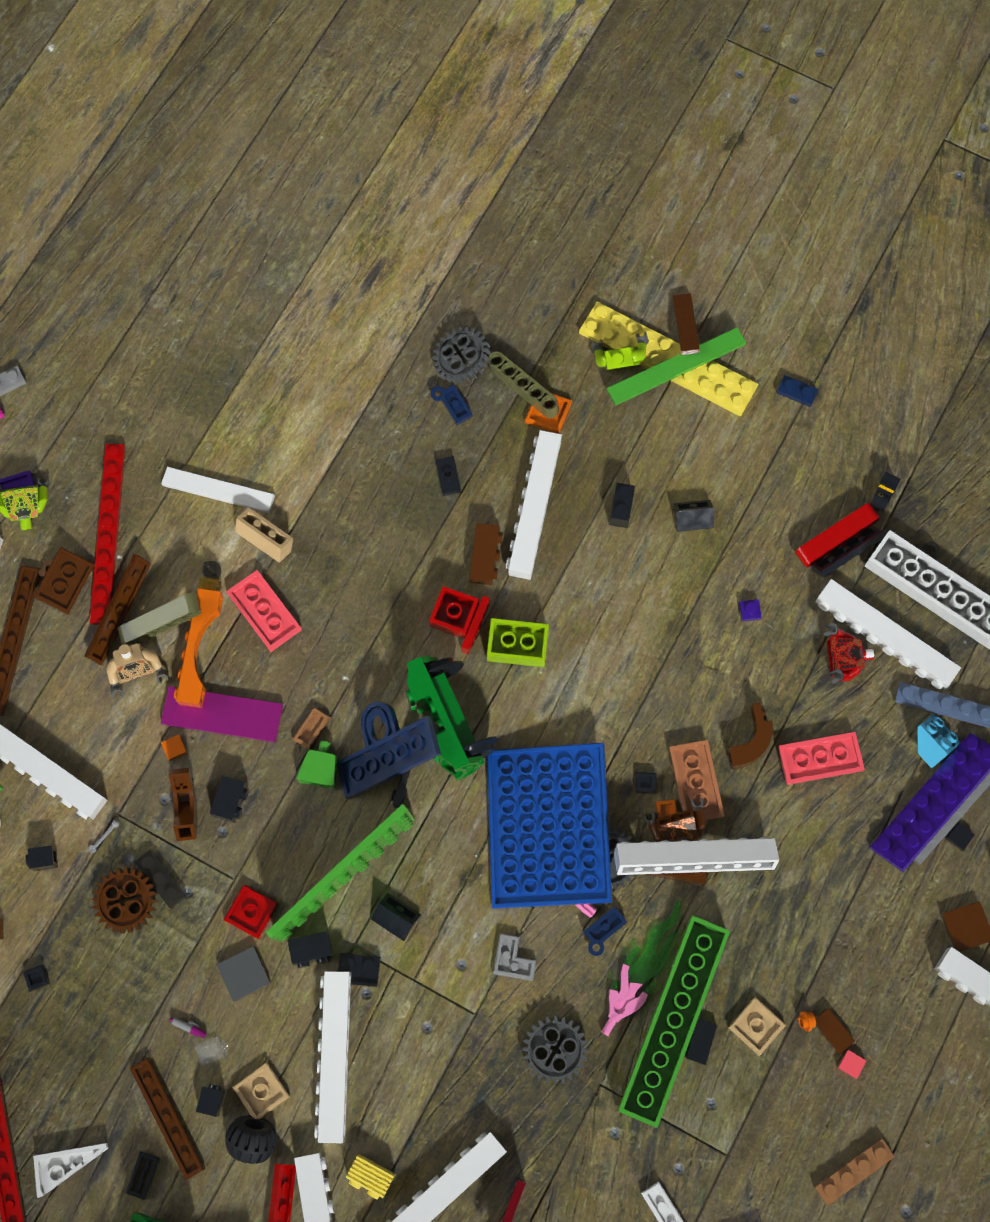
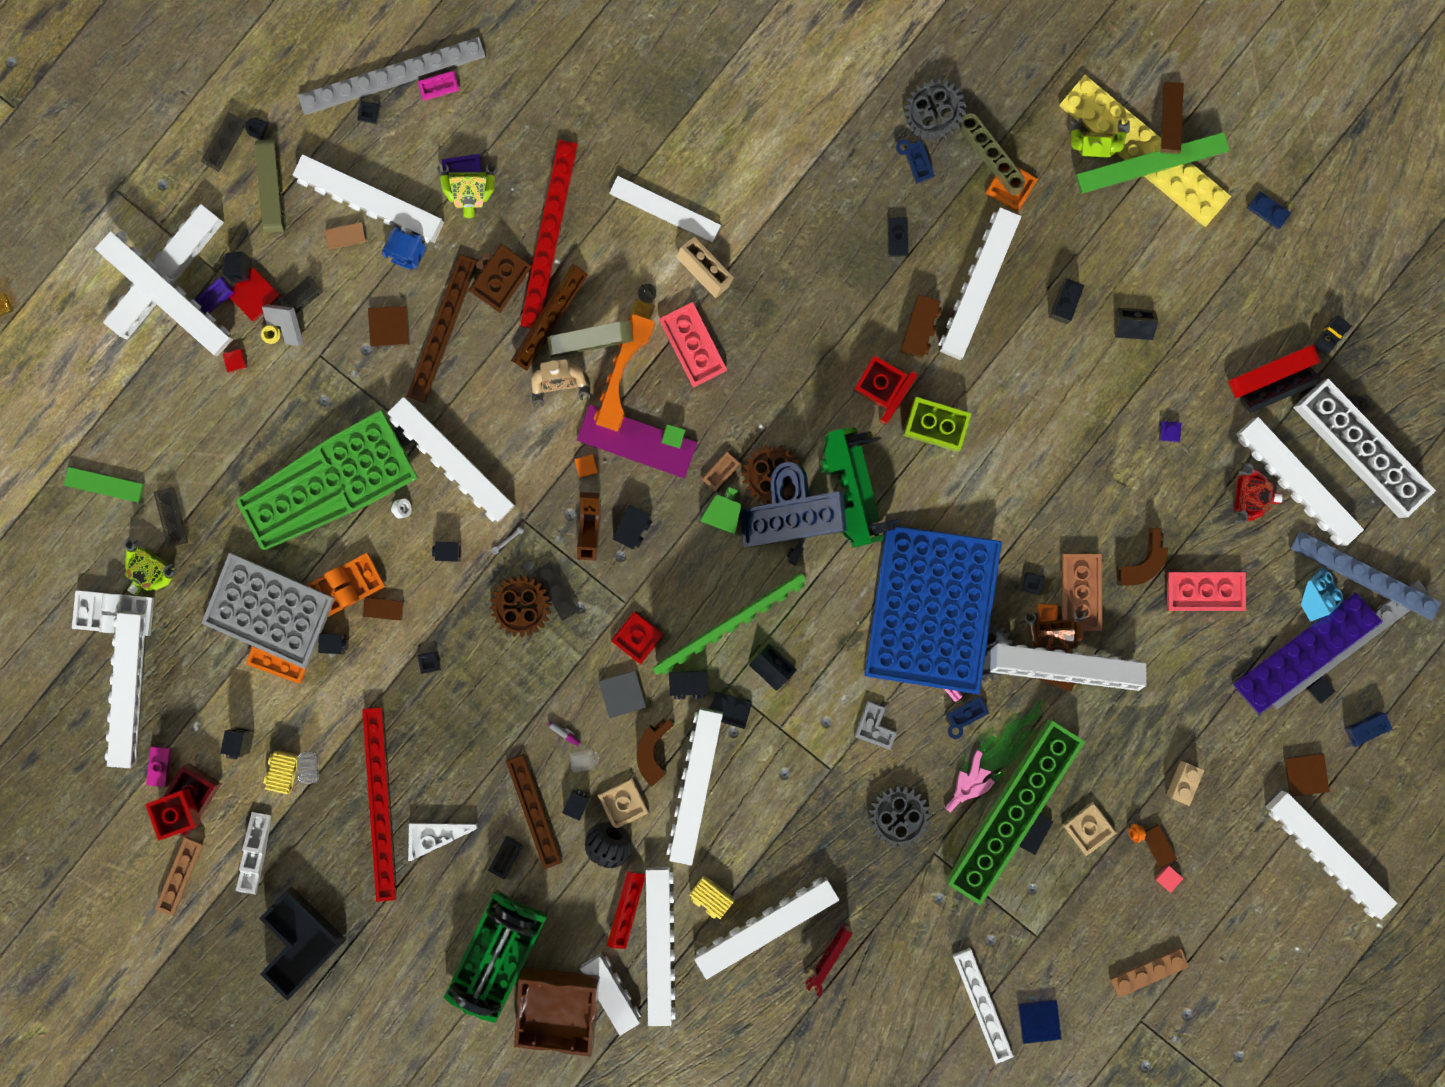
camera: 10 degrees right, 15 degrees up
(257, 701) = (673, 436): none -> bright green tile
(276, 1031) = (646, 760): none -> reddish brown arch
(347, 728) = (755, 478): none -> reddish brown gear
(844, 957) = (1185, 783): none -> tan brick

